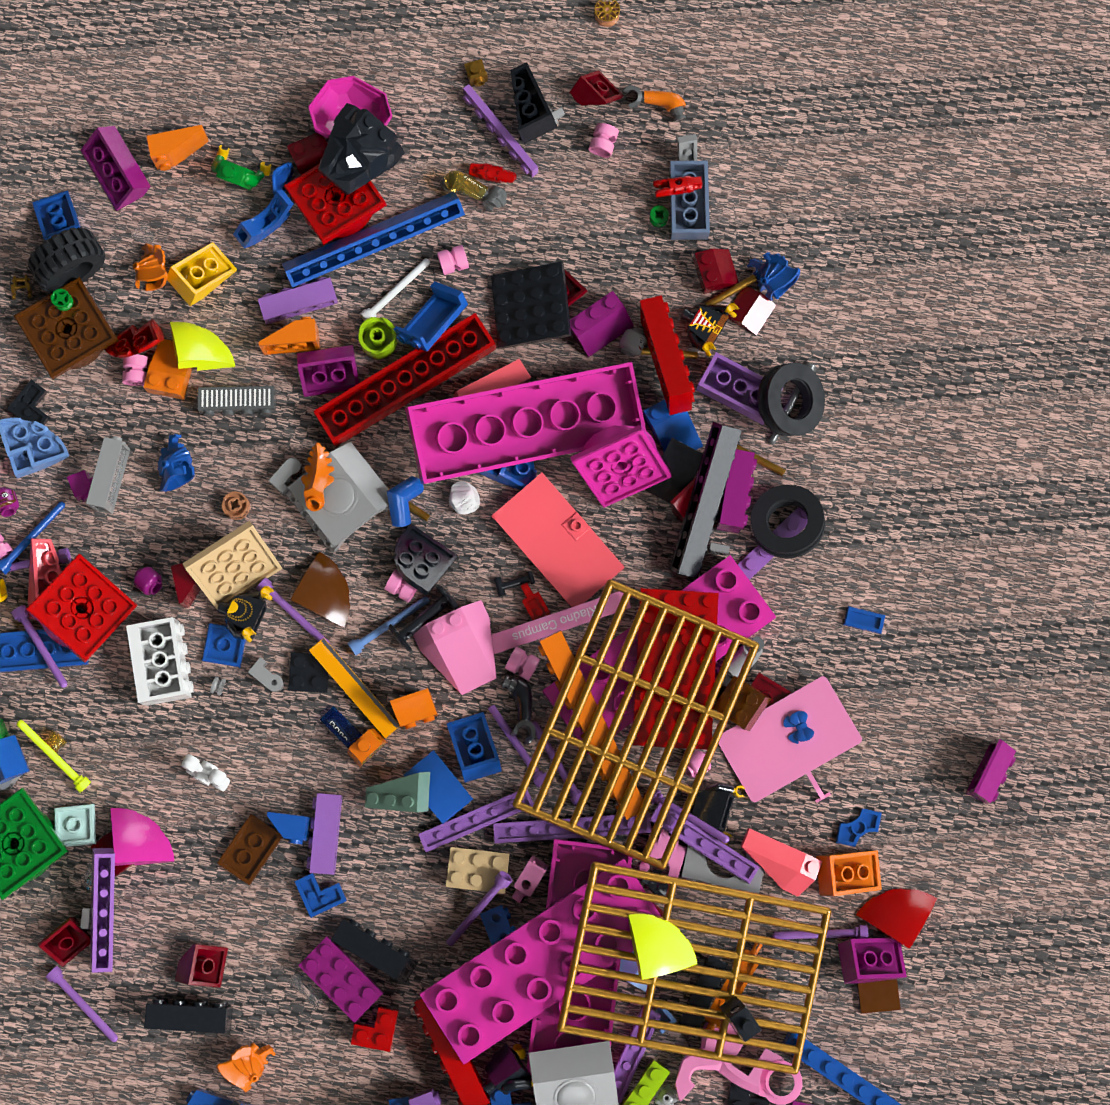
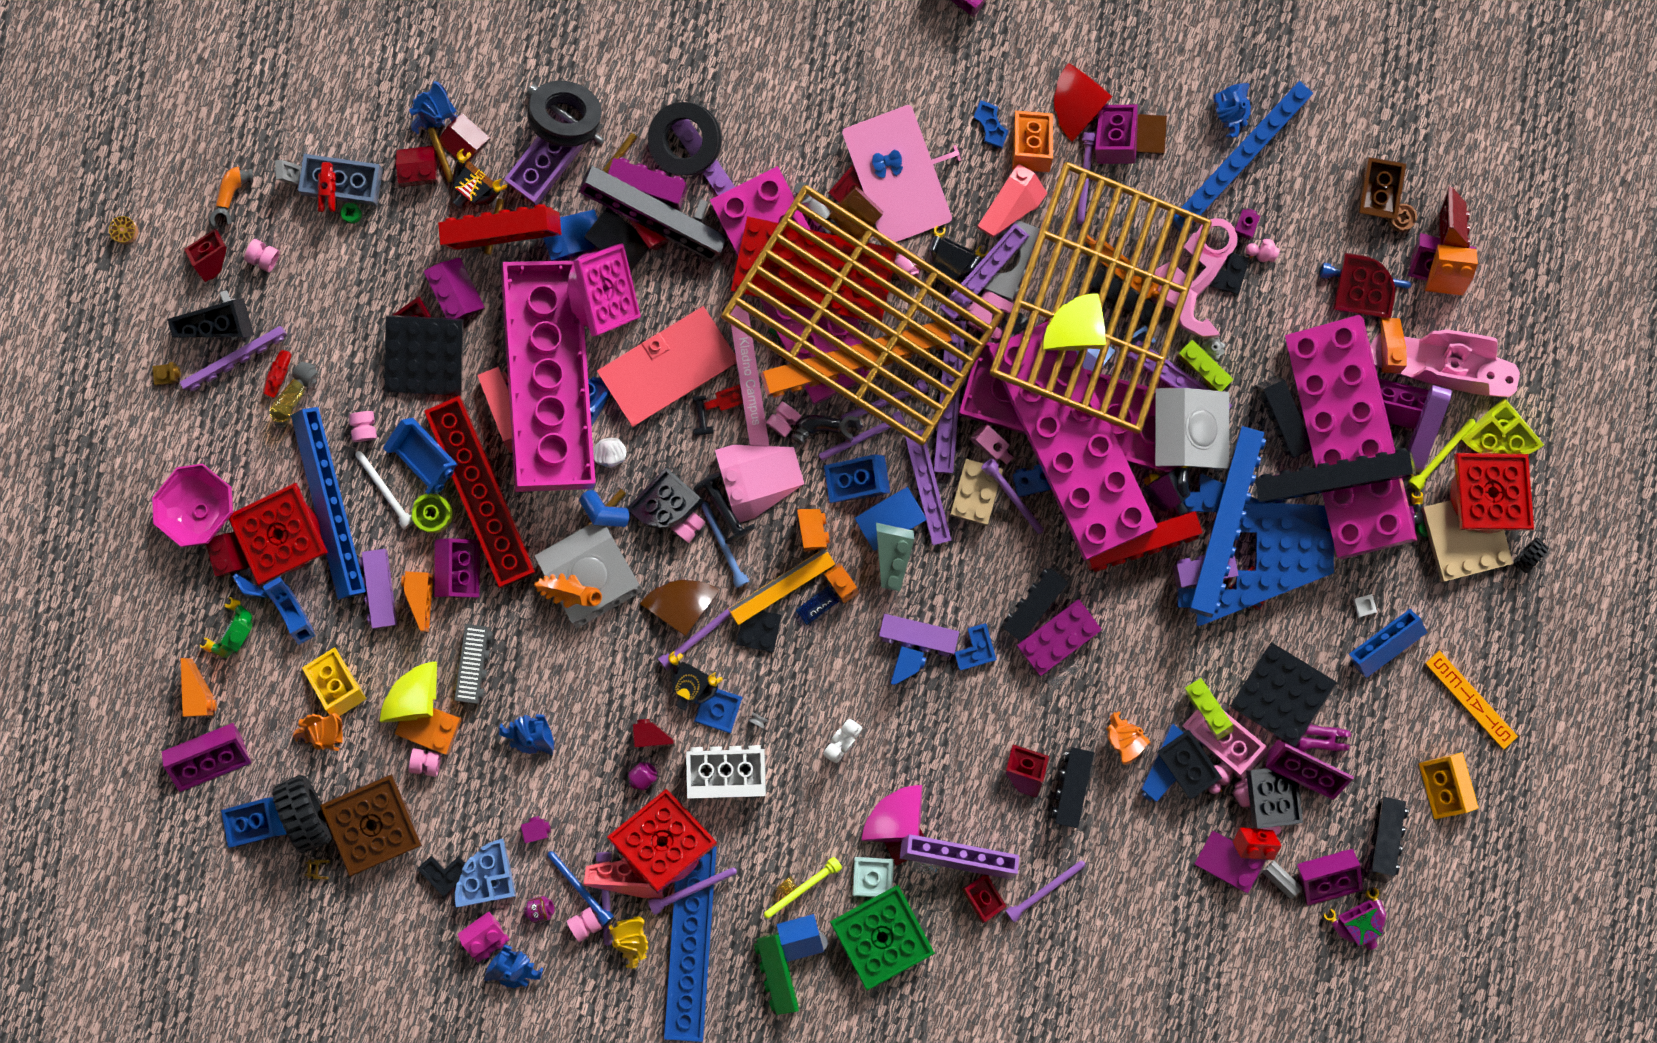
camera: 80 degrees left, 5 degrees up
(59, 296) = (339, 825): green wheel -> none
(86, 918) = (964, 875): white tile -> none
(108, 475) = (530, 800): light grey window -> none
(136, 341) = (396, 755): red brick -> none
(232, 565) = (643, 685): tan plate -> none
(235, 505) = (580, 679): nougat wheel -> none
(250, 849) = (922, 709): reddish brown plate -> none
(271, 681) = (759, 670): light grey leg -> none
(283, 476) = (558, 628): light grey leg -> none
(358, 149) = (235, 501): black wedge -> none
(378, 1036) = (1117, 609): red brick -> none
(632, 342) = (478, 260): light grey head -> none
(658, 798) = (960, 278): medium lavender piece -> none
(741, 1020) = (1157, 260): black torso -> none
(864, 620) = (792, 83): blue tile -> none
(922, 1079) = (1233, 107): none -> blue helmet

